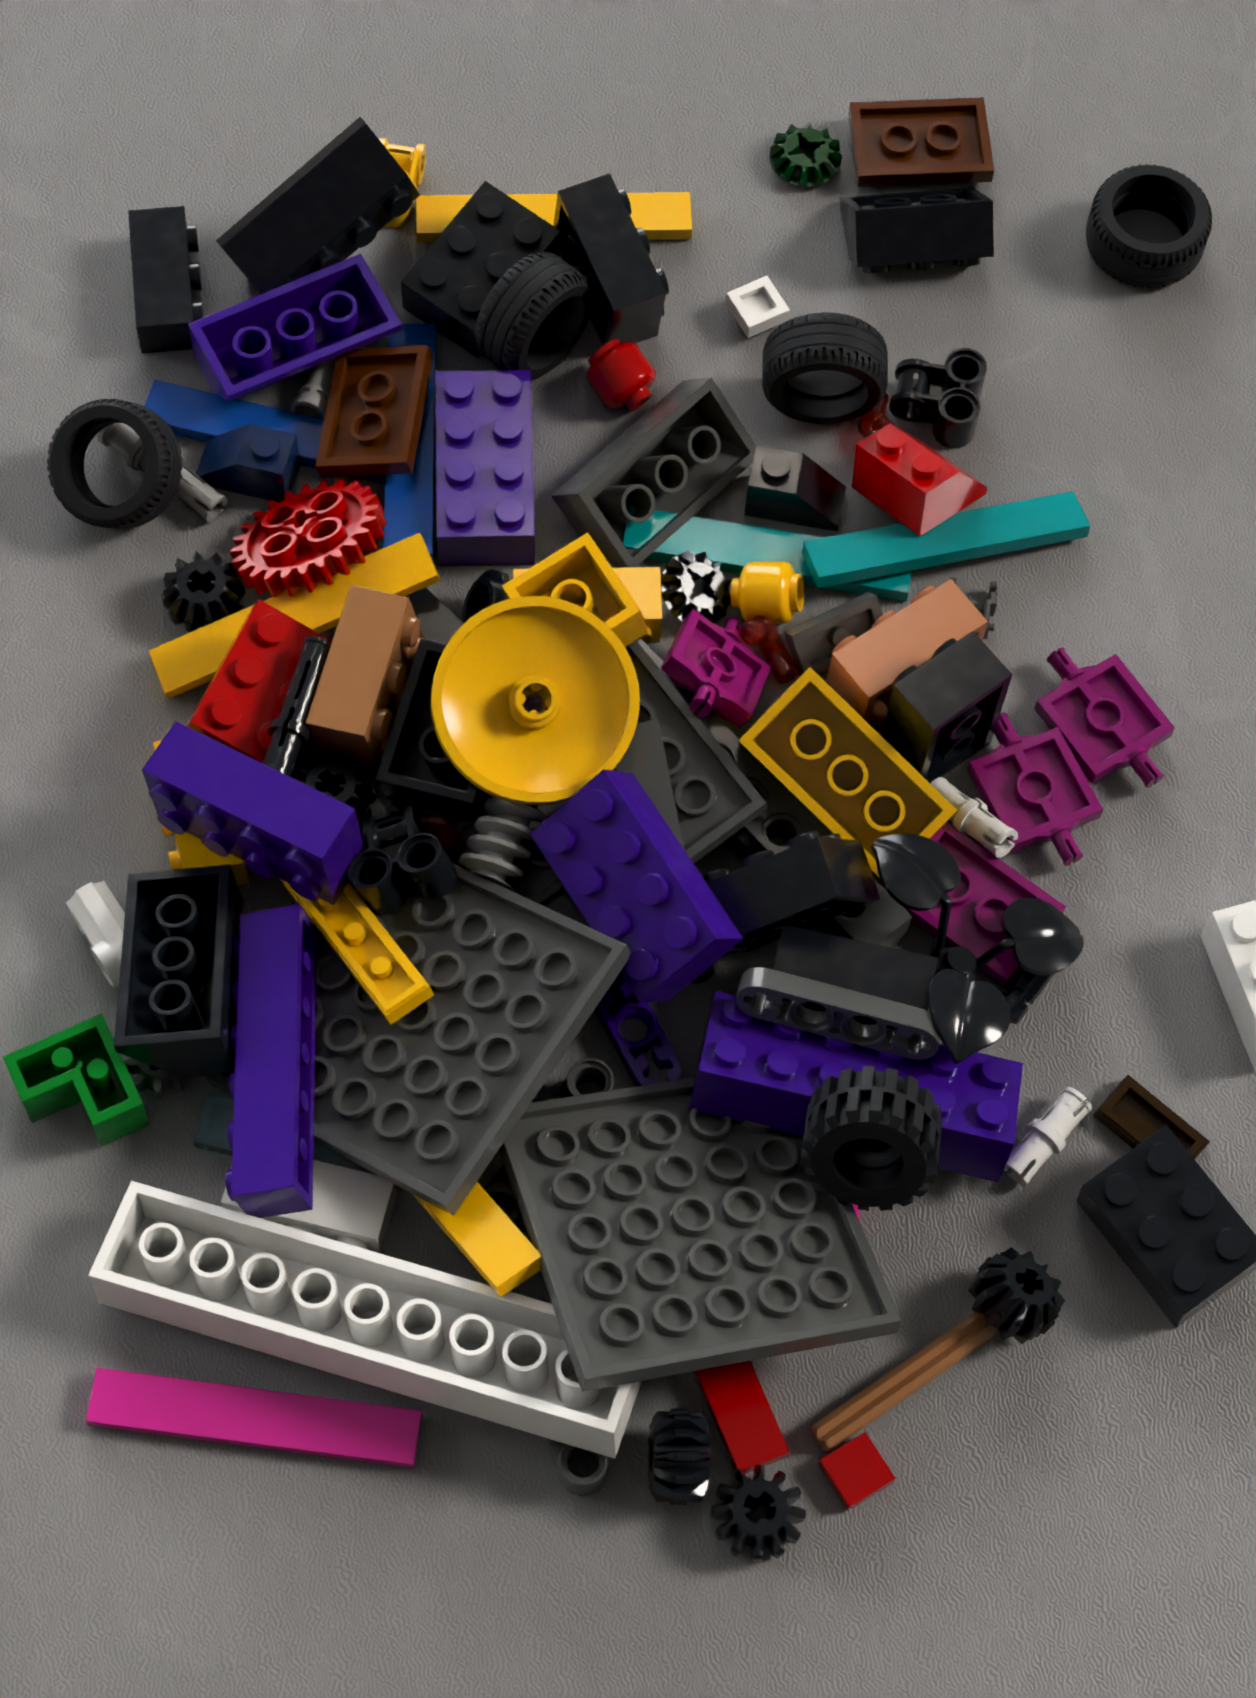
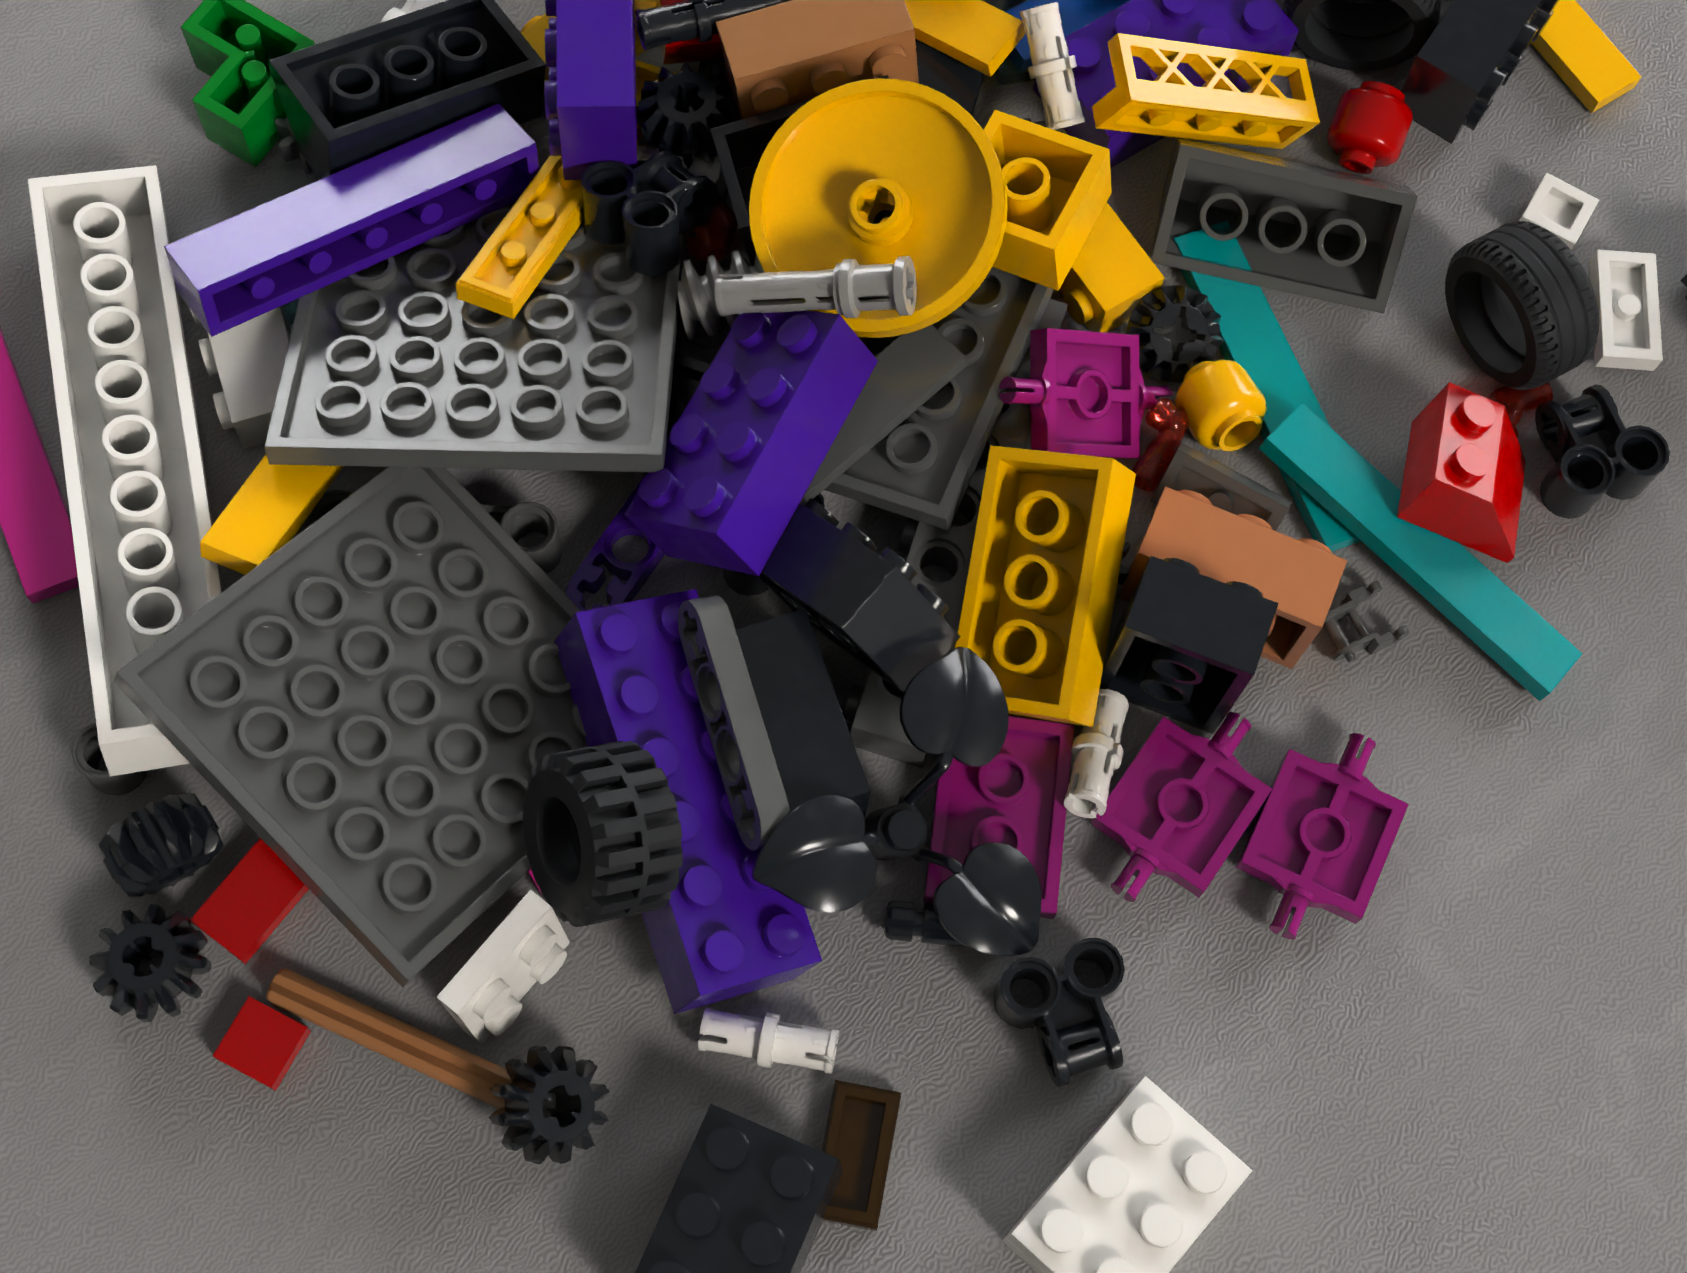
camera: 55 degrees right, 5 degrees up
(463, 536) = (1052, 66): none -> white pin
(560, 451) = (1210, 112): none -> yellow fence
(588, 753) = (845, 288): none -> light grey pin
(793, 490) = (1362, 364): black slope -> none
(840, 296) = (1628, 310): none -> white plate
(919, 1284) = (505, 967): none -> white plate
(1131, 939) = (1069, 1010): none -> black piece

